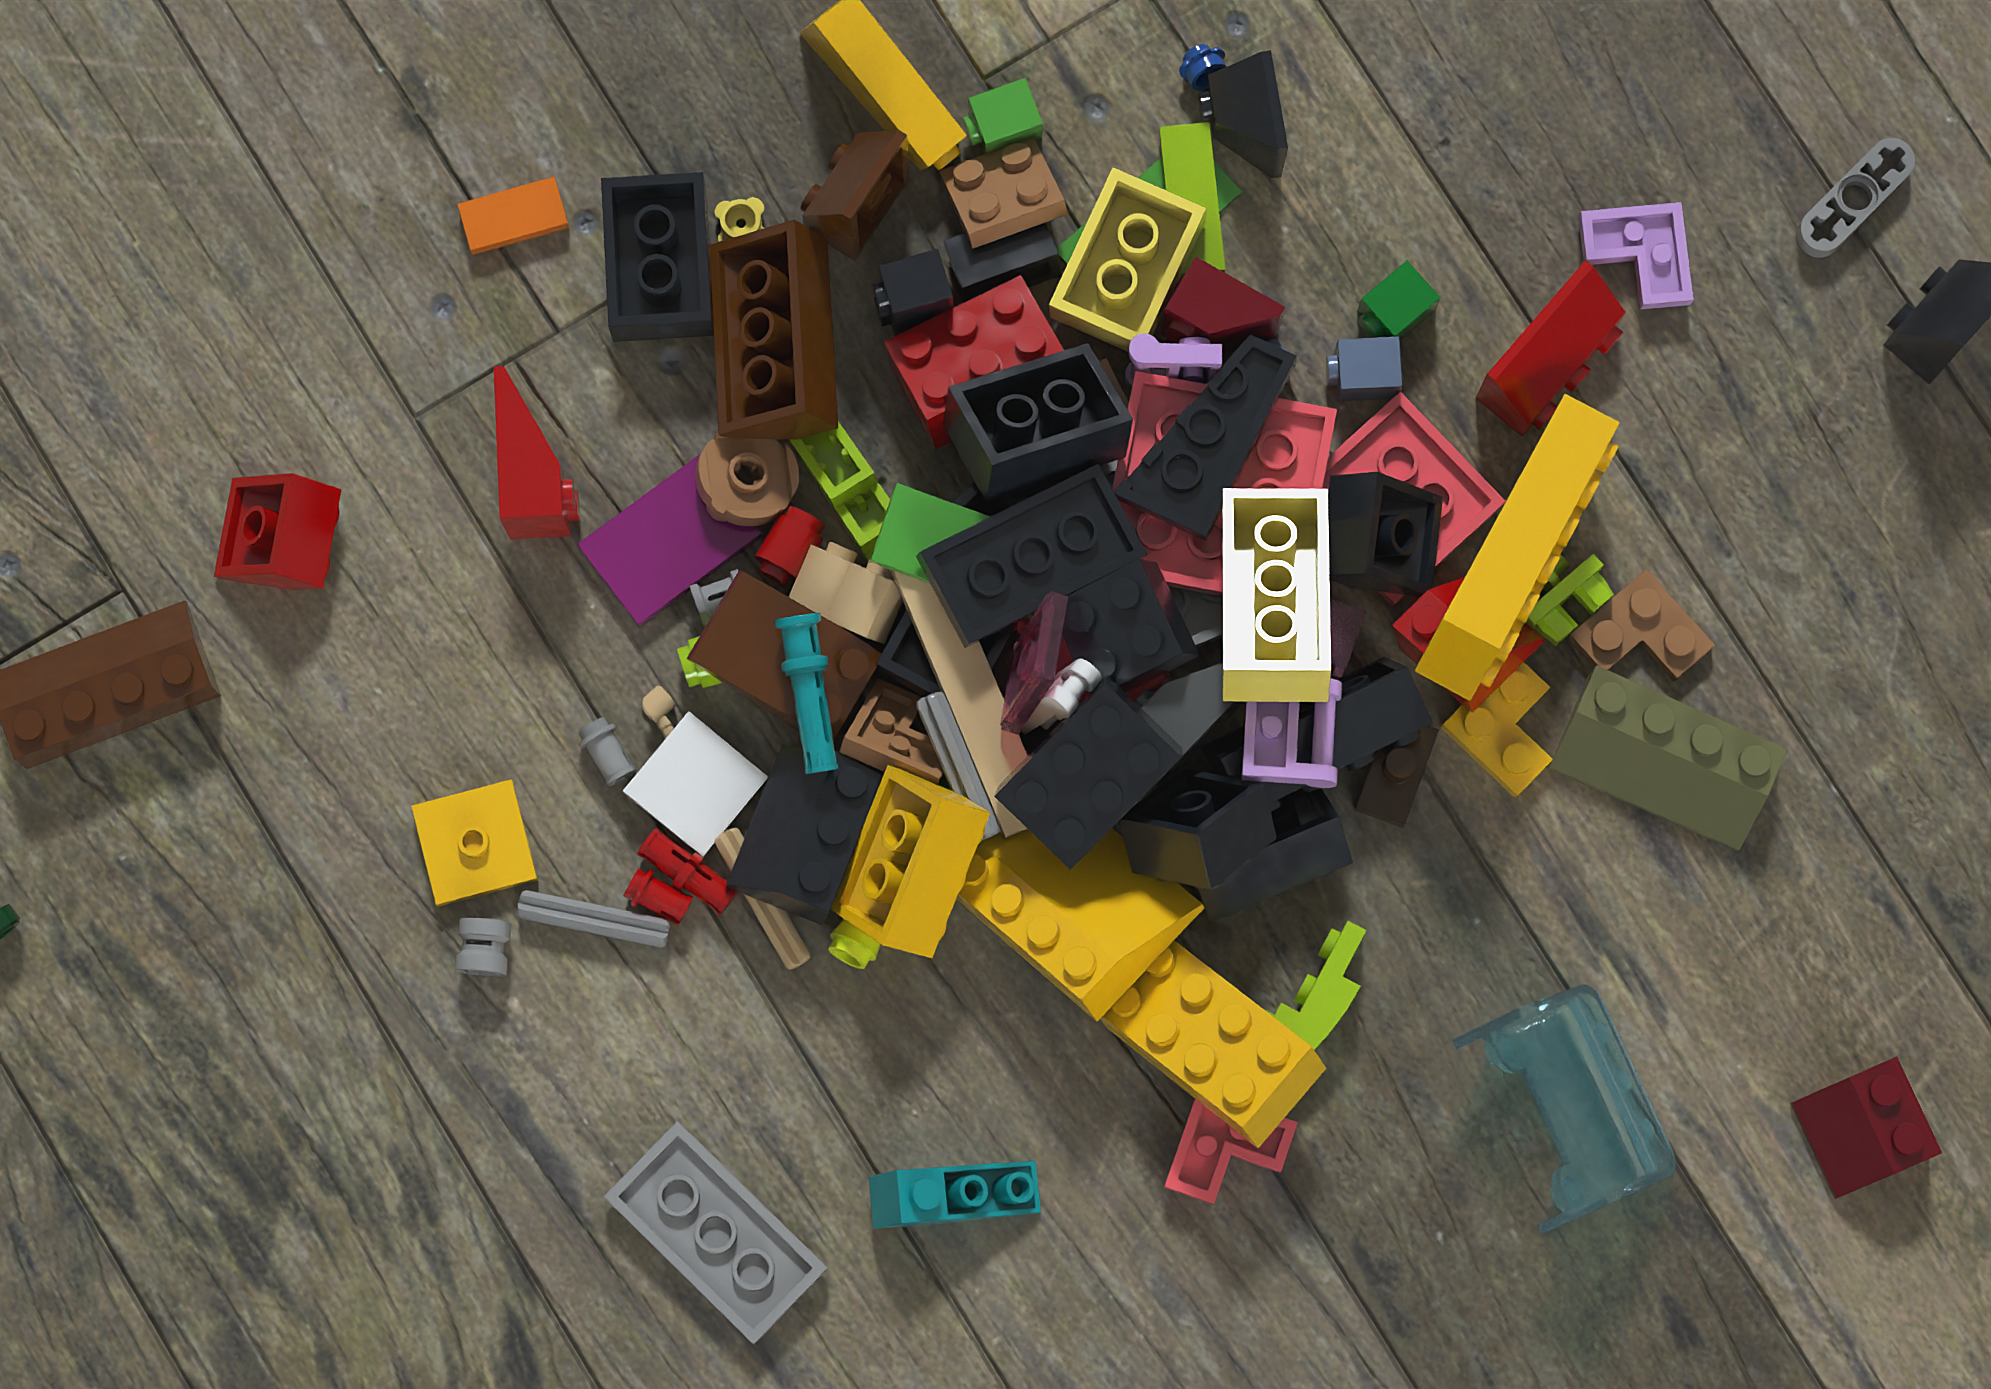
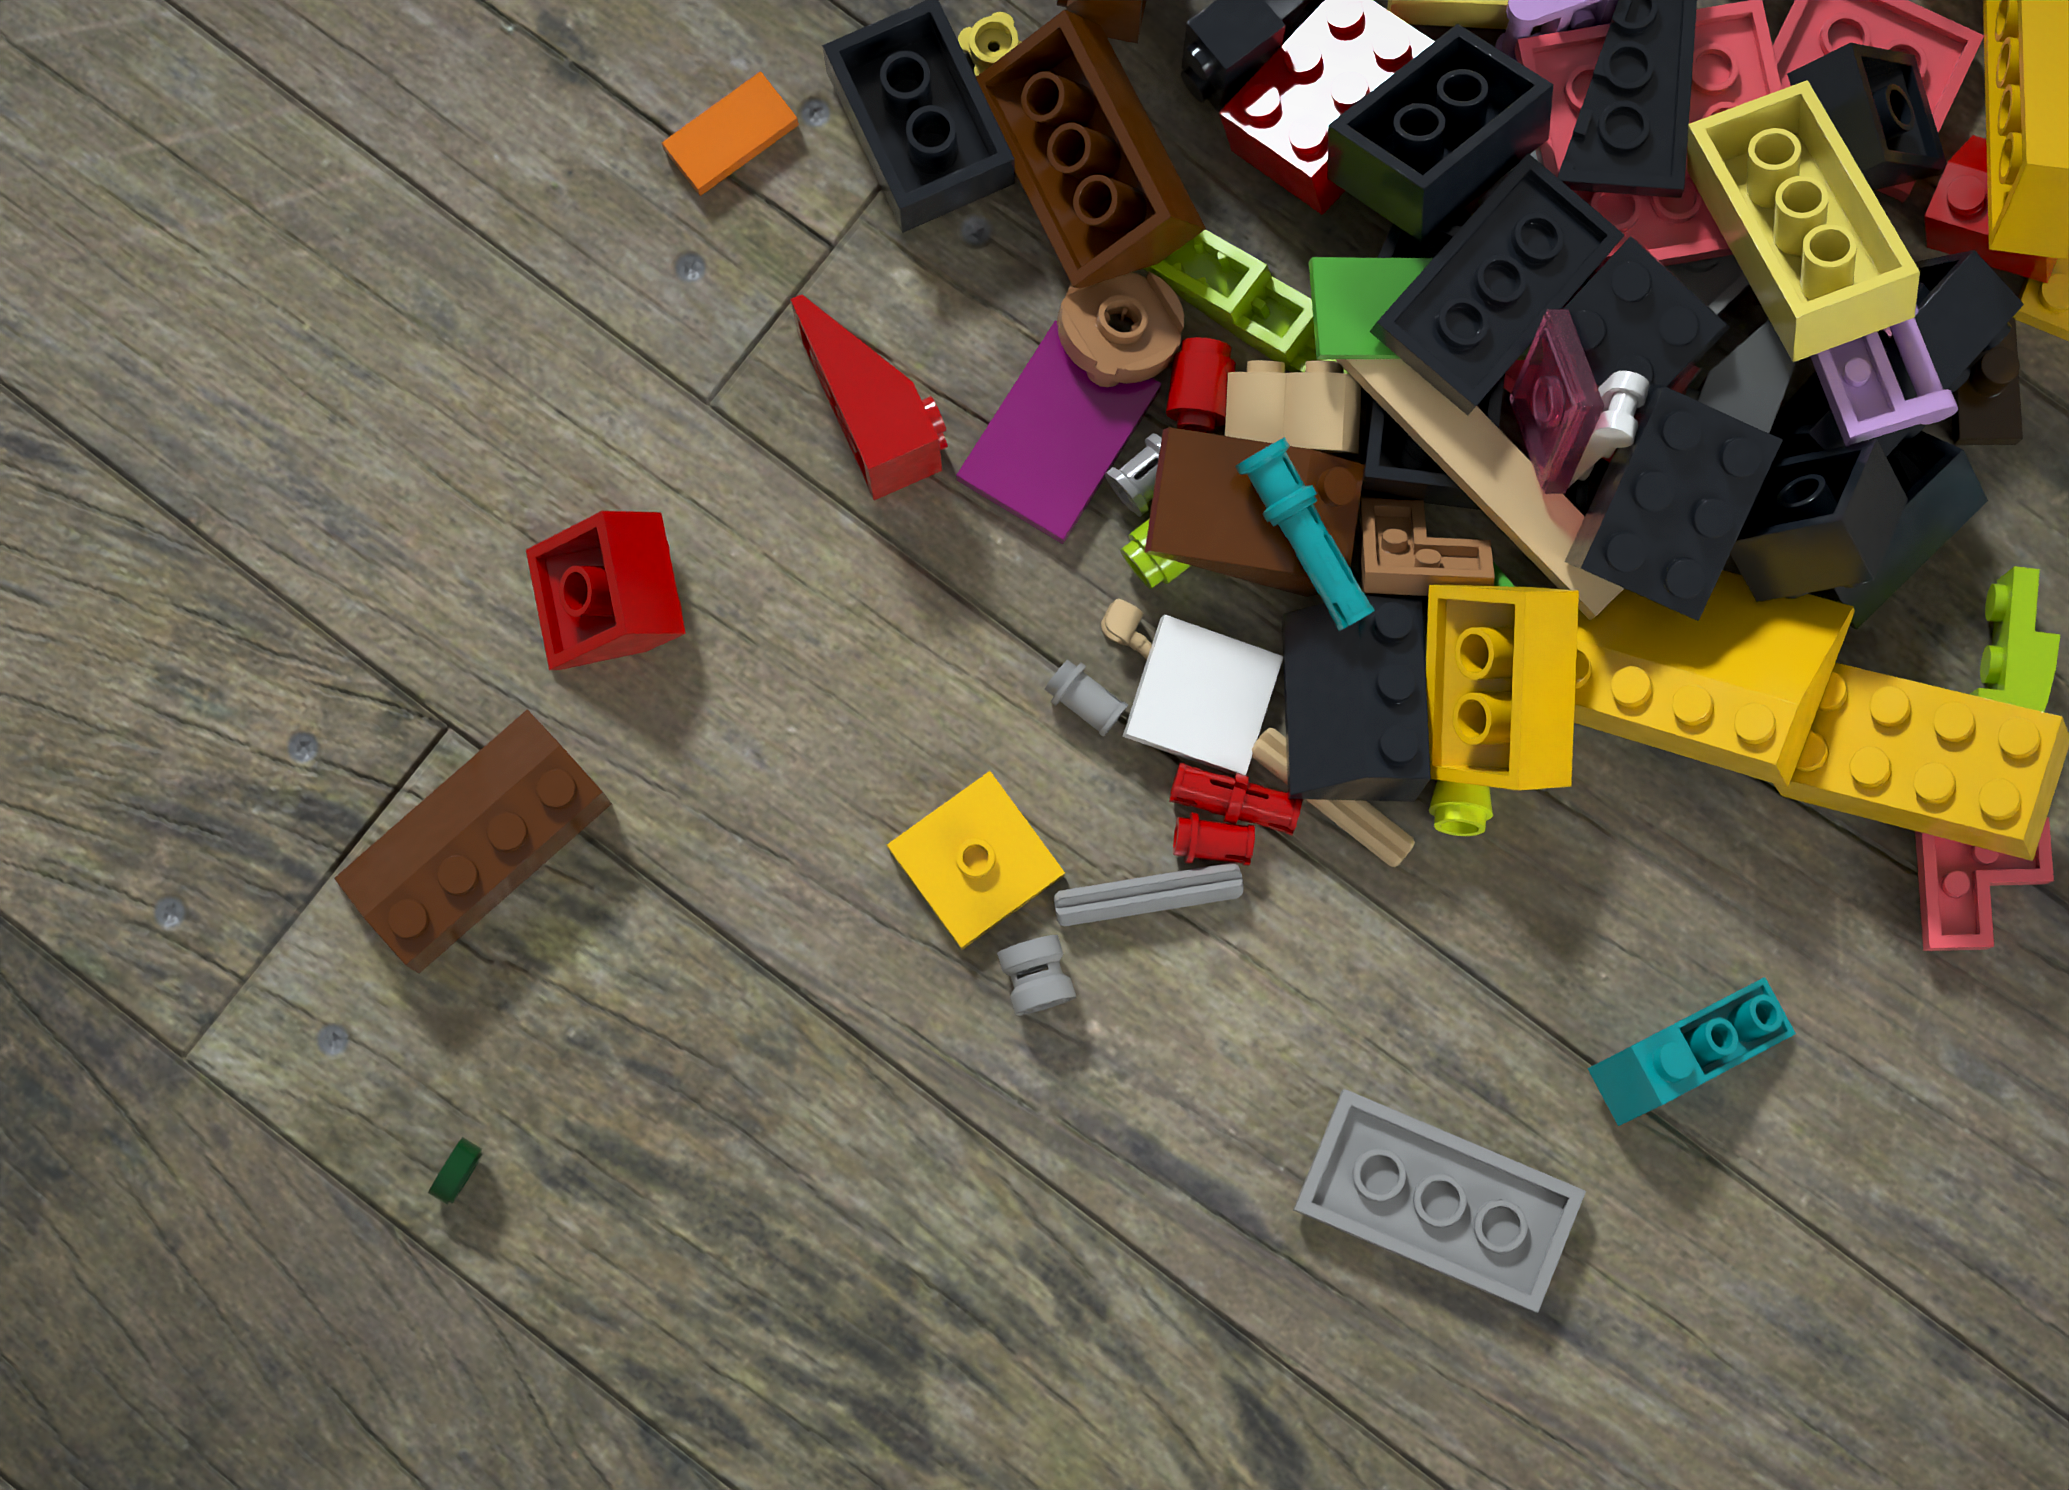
camera: 20 degrees left, 0 degrees up
(954, 754) = (1493, 539): light grey axle -> none

